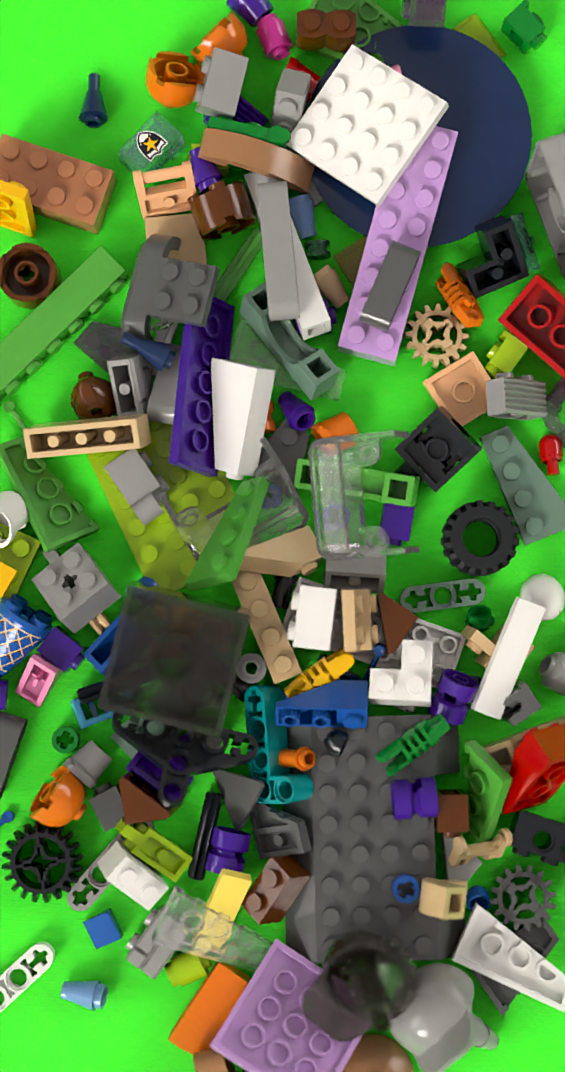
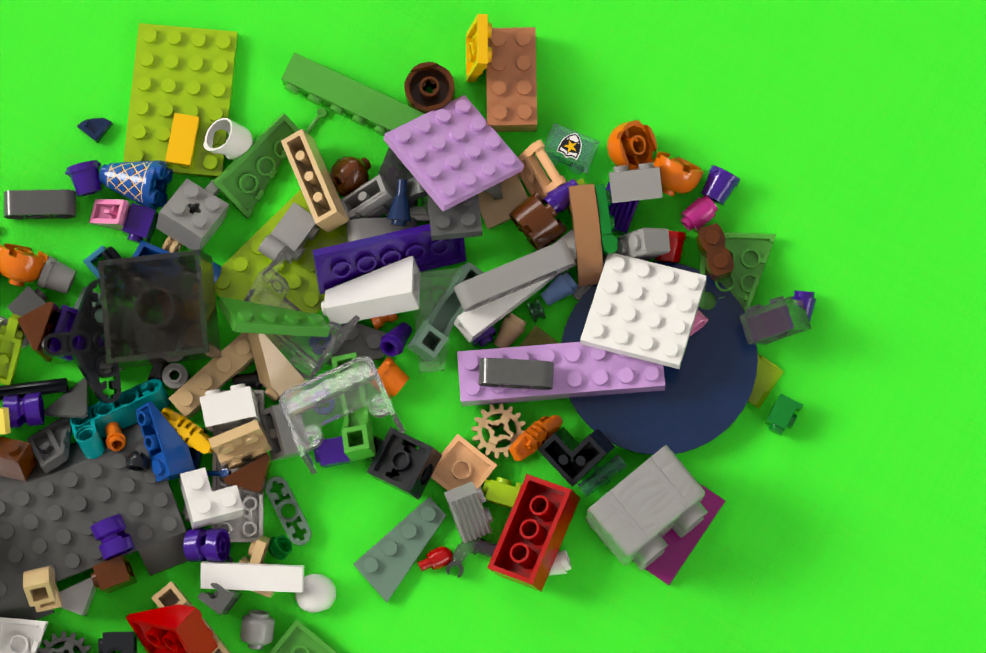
camera: 70 degrees right, 5 degrees down
(60, 732) = (63, 247): green bush -> none
(93, 109) = (587, 91): cone -> none
(113, 270) = (453, 153): none -> lavender plate
(239, 265) = (493, 250): bright green axle -> none
(407, 898) = (45, 551): blue bush -> none
(413, 743) = (156, 522): green hinge -> none
(463, 853) = (83, 595): tan piece -> none
(478, 895) = (54, 625): blue hinge -> none
(486, 791) = (136, 598): bright green wing -> none
(500, 523) = (337, 501): black tyre -> none

